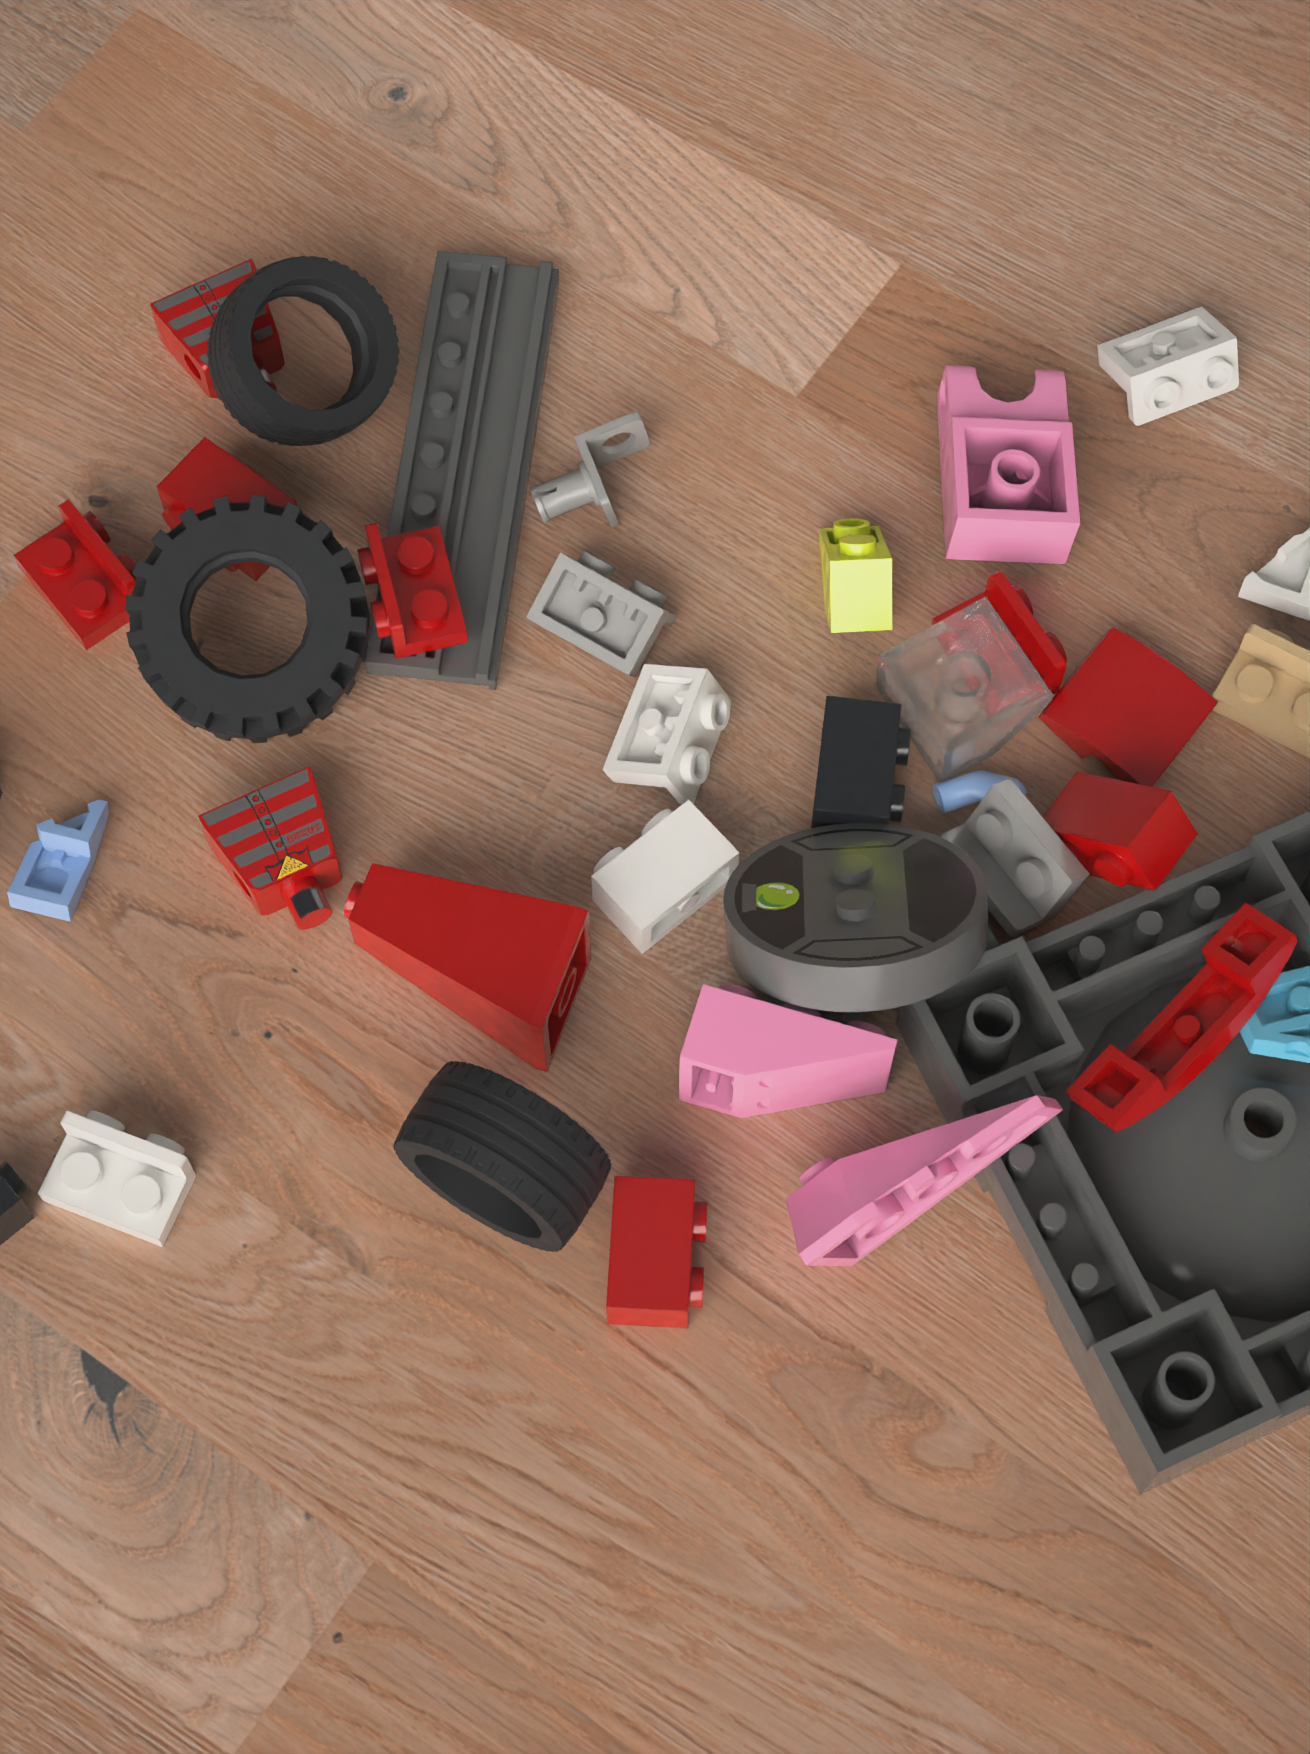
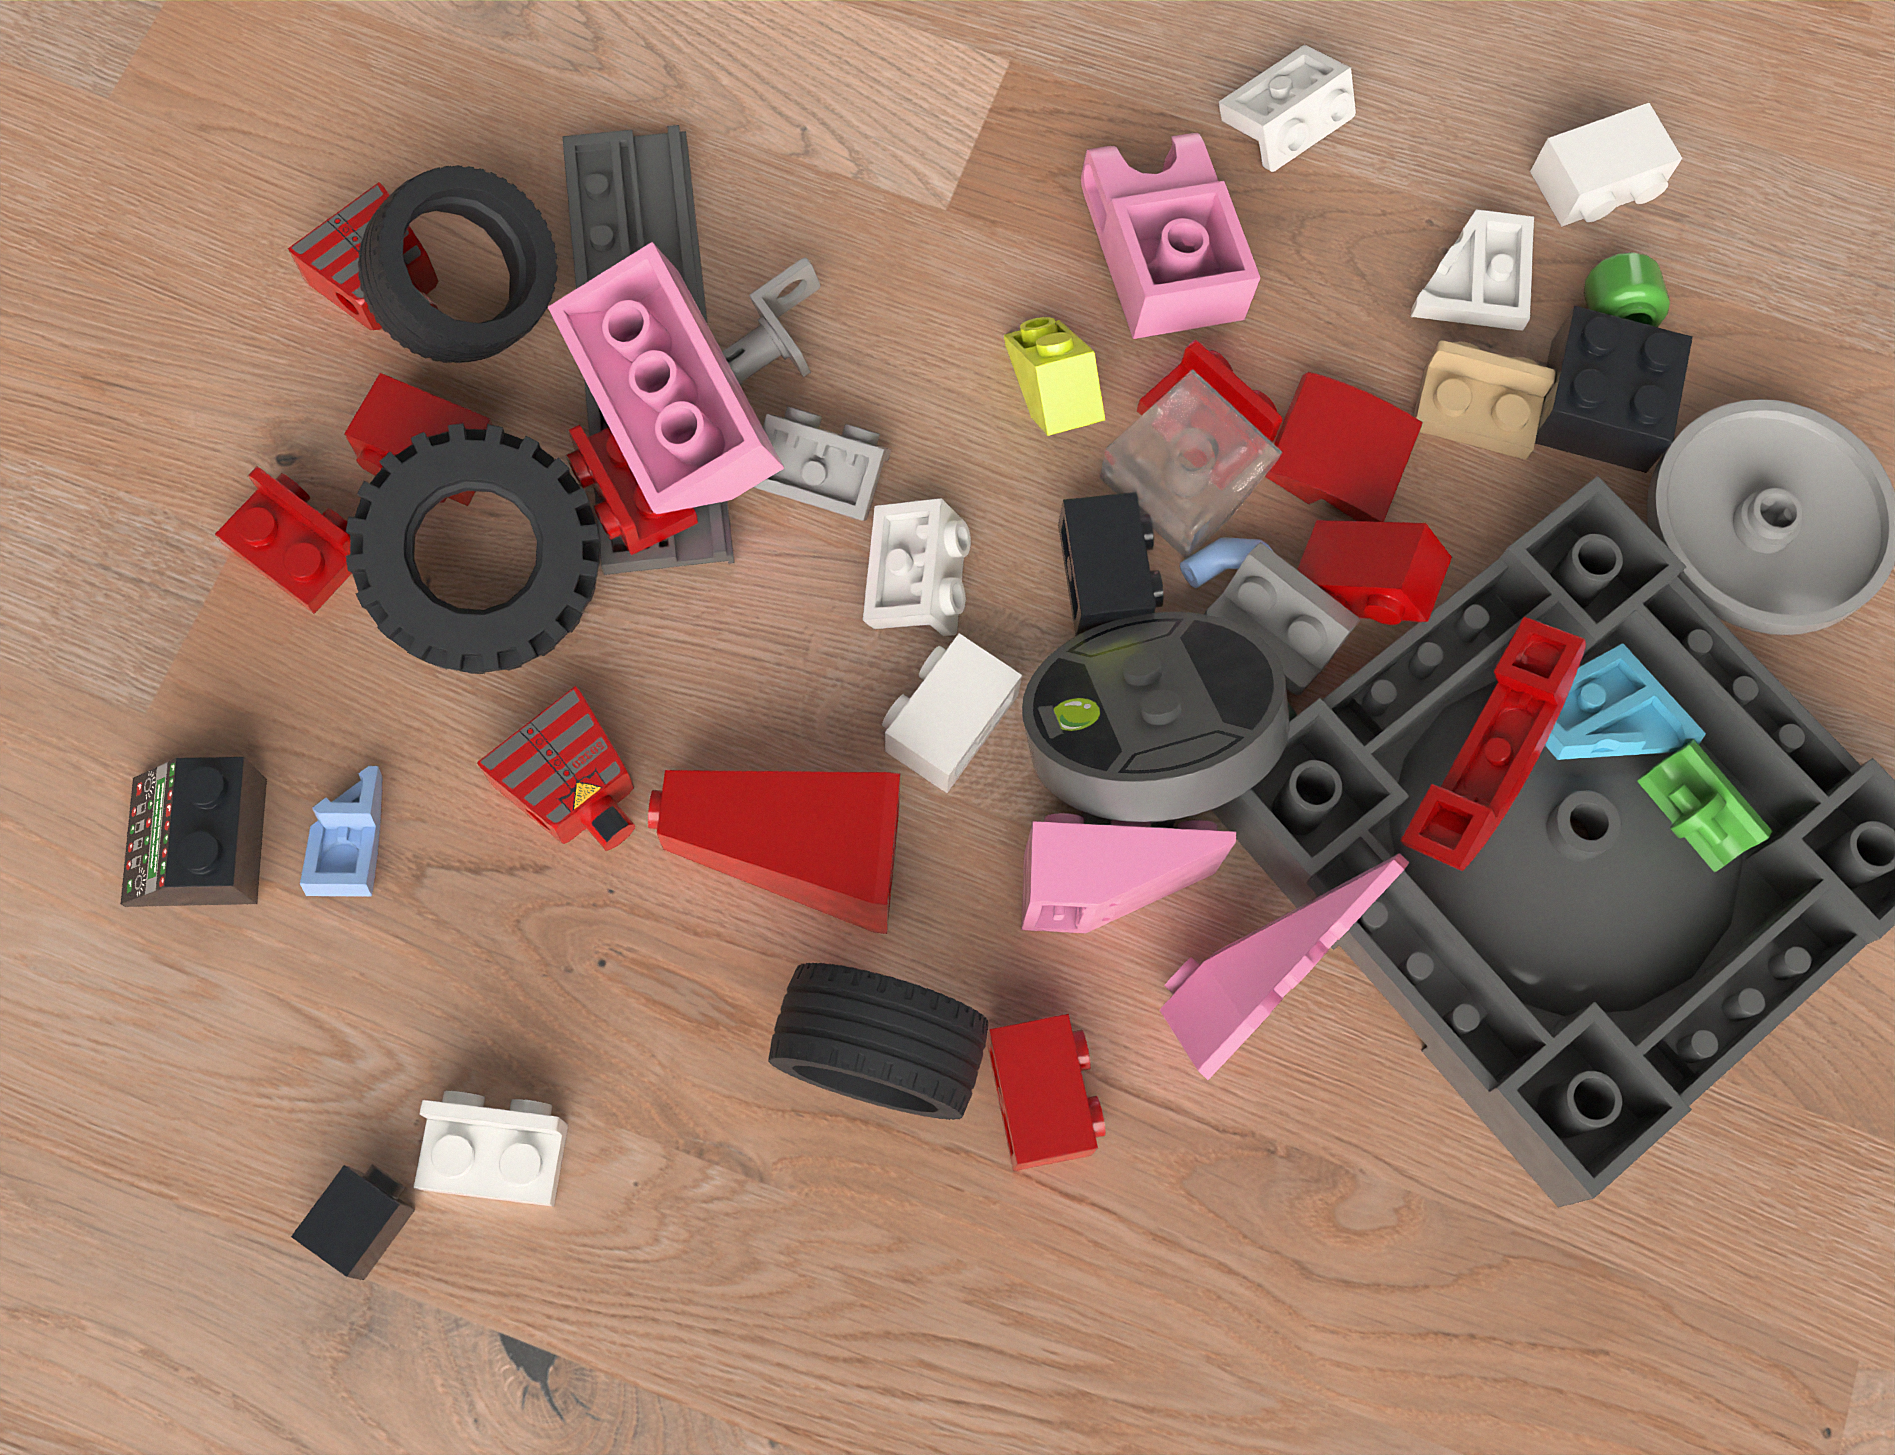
camera: 20 degrees left, 5 degrees up
(468, 504) = (664, 385): none -> bright pink slope

